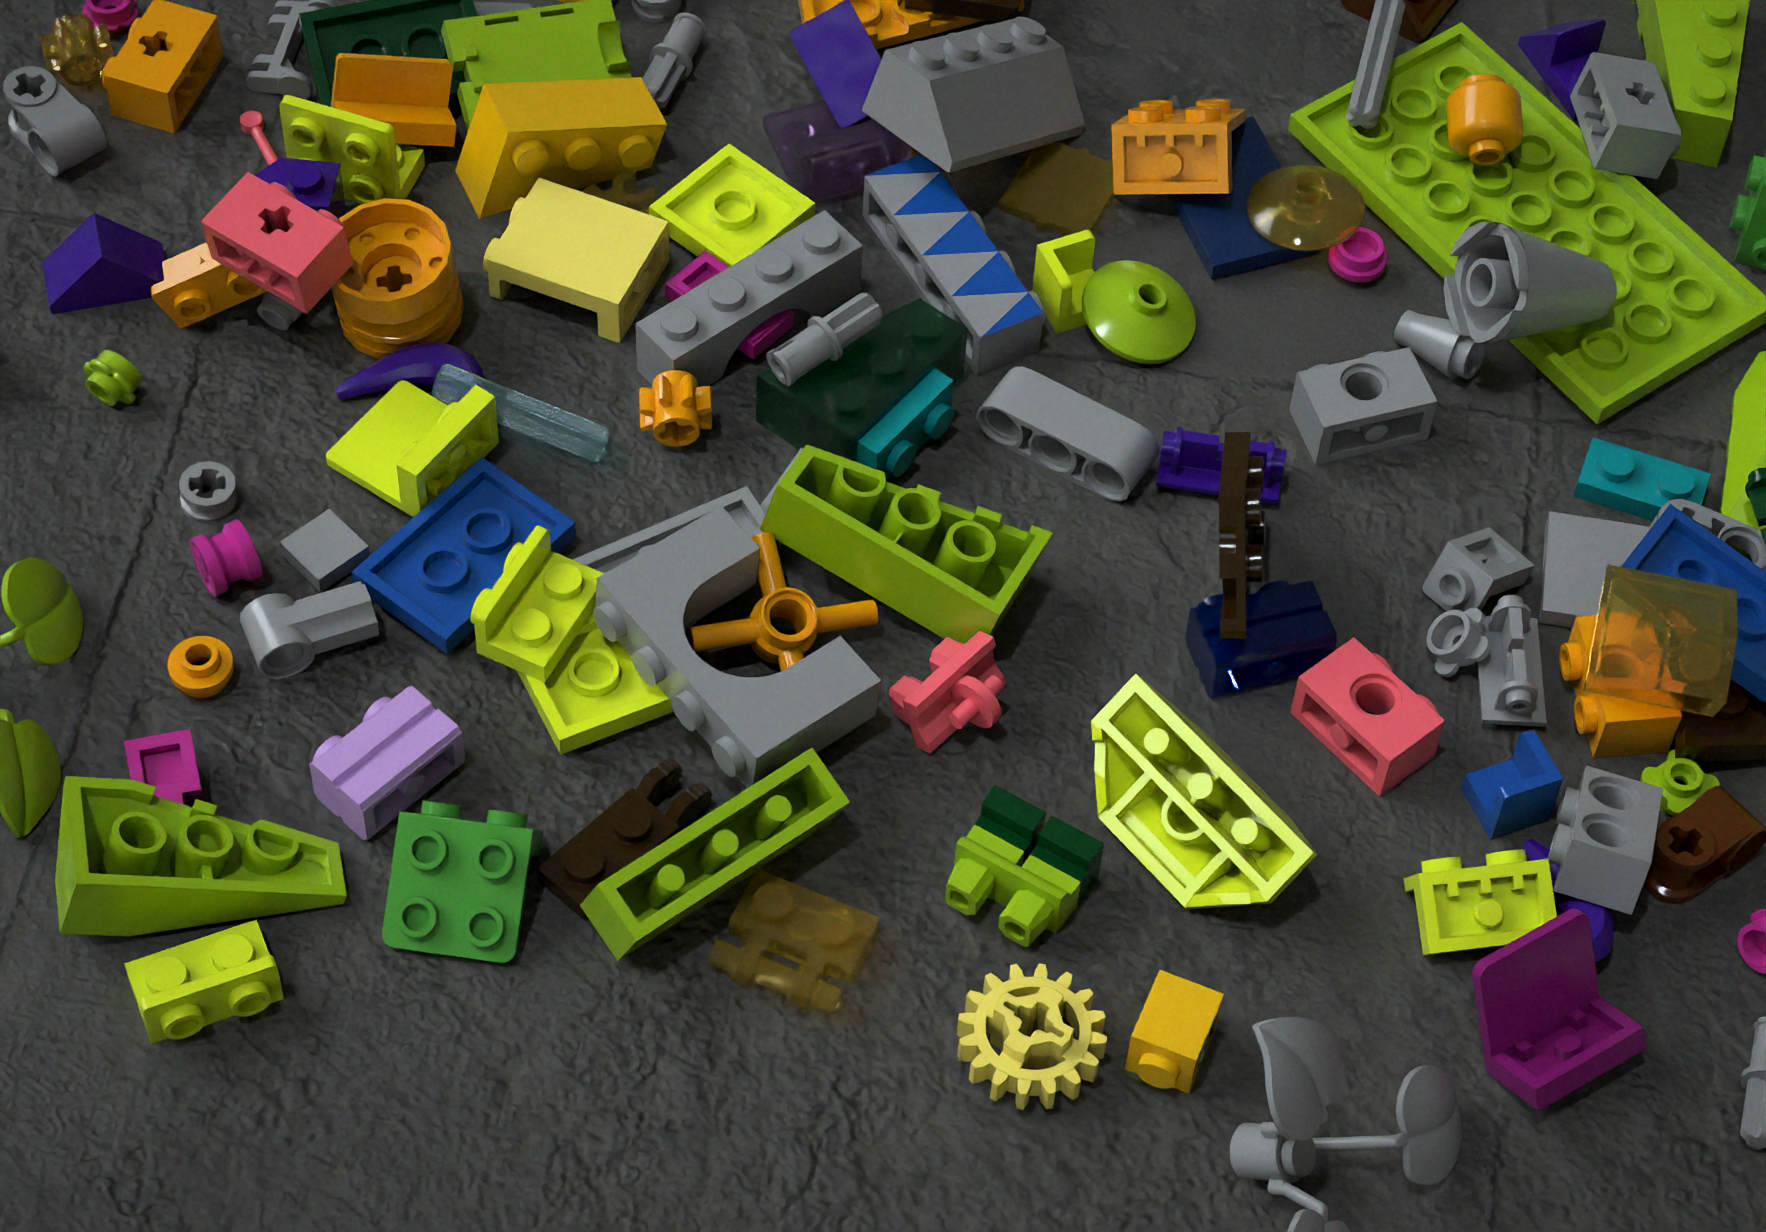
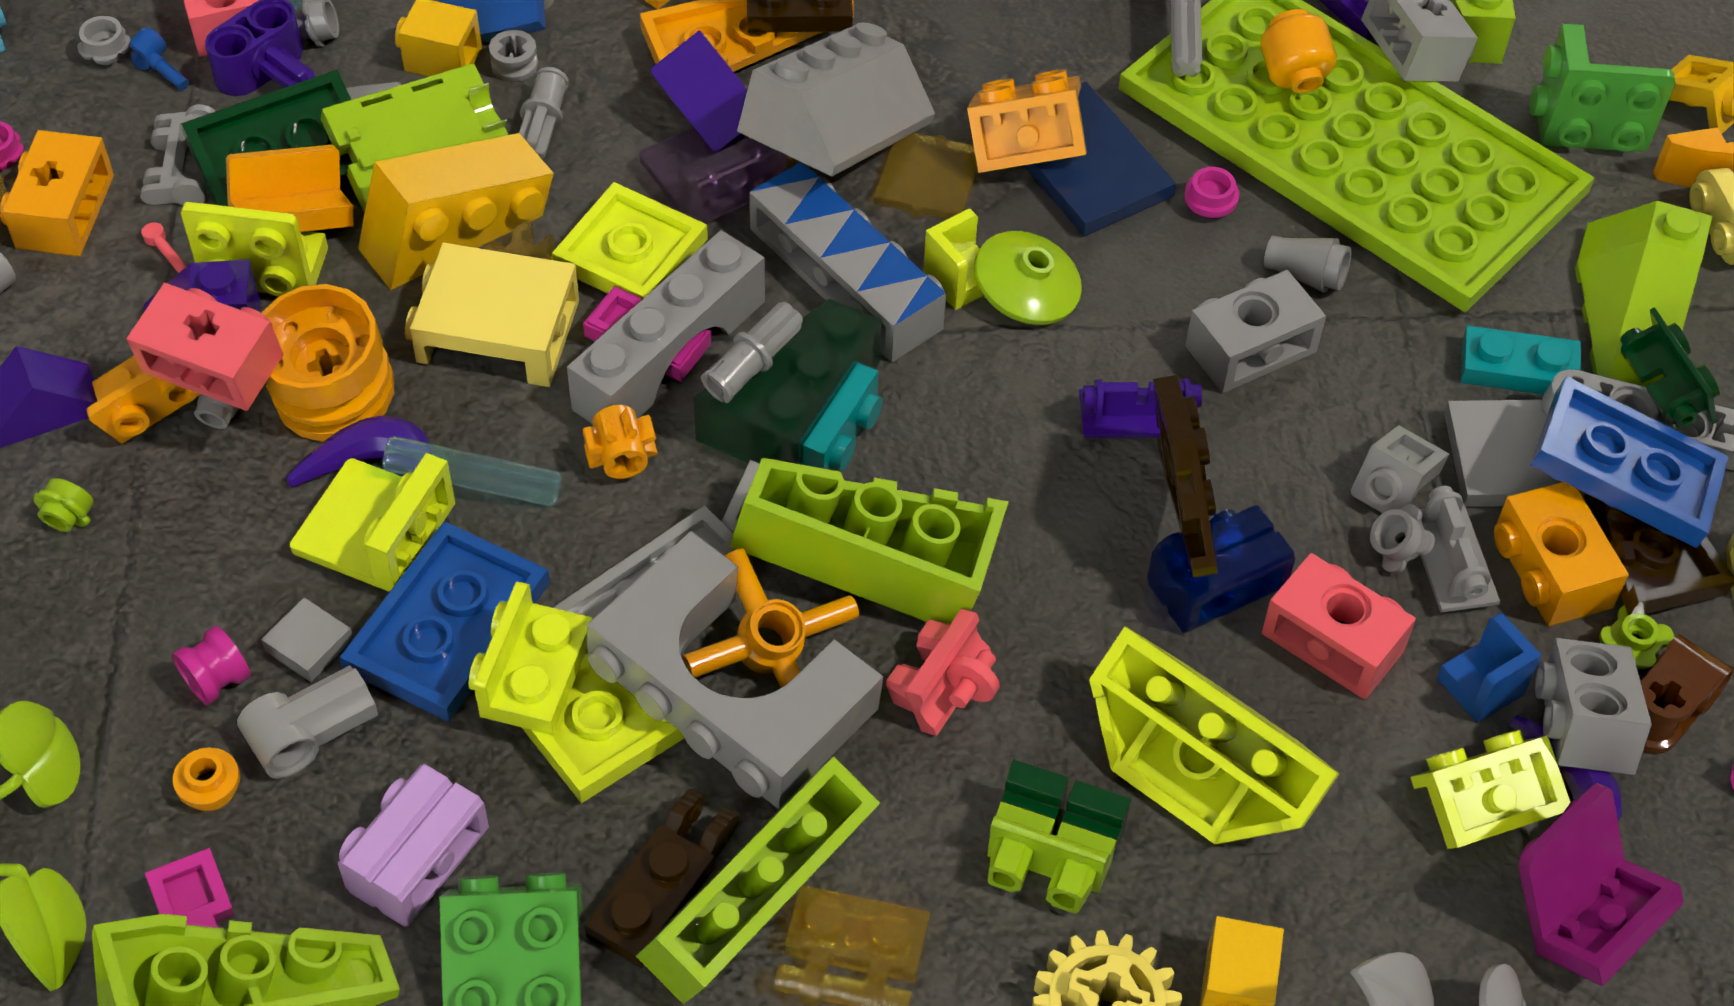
camera: 10 degrees left, 0 degrees up
(192, 484) = (163, 595): light grey bush -> none
(1068, 433) = (992, 403): light grey beam -> none
(1305, 207) = (1155, 157): clear yellow dish -> none
(1522, 285) = (1375, 196): light grey cone -> none
(1663, 641) = (1602, 508): clear yellow slope -> none

